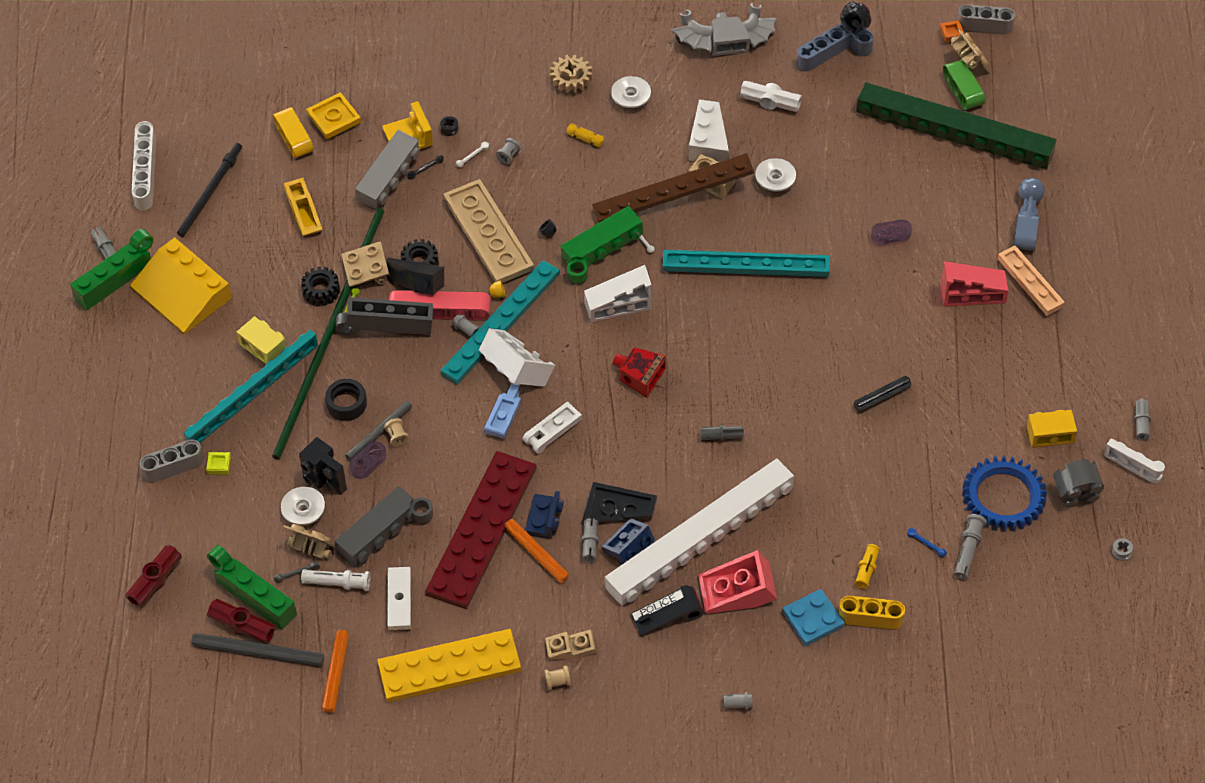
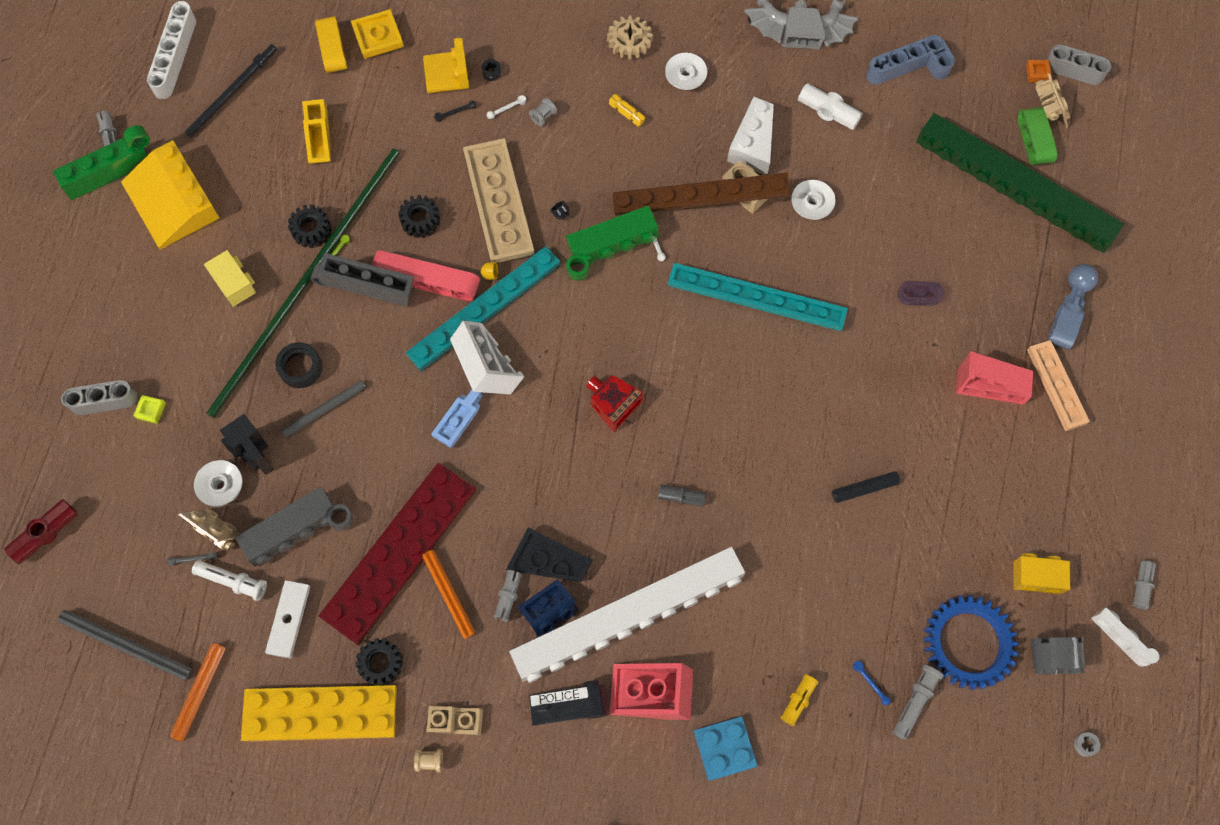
camera: 10 degrees right, 15 degrees up
(230, 615) = (105, 598): dark red piece -> none
(251, 588) = (135, 572): green hinge -> none
(252, 388) = (203, 332): teal plate -> none
(366, 265) = (361, 212): tan hinge -> none
(370, 460) = (303, 442): plate -> none
(387, 170) = (412, 107): light grey brick -> none
(396, 432) = (339, 415): tan bush -> none
(415, 275) = (407, 239): black slope -> none
(460, 322) = (446, 306): light grey pin -> none
(491, 602) = (369, 651): none -> black tyre
(543, 515) = (467, 552): dark blue bracket -> none
(552, 427) = (504, 447): white plate -> none
(620, 296) = (613, 308): white wedge -> none
(855, 16) = (941, 35): black piece -> none
(882, 610) = (803, 761): yellow beam -> none

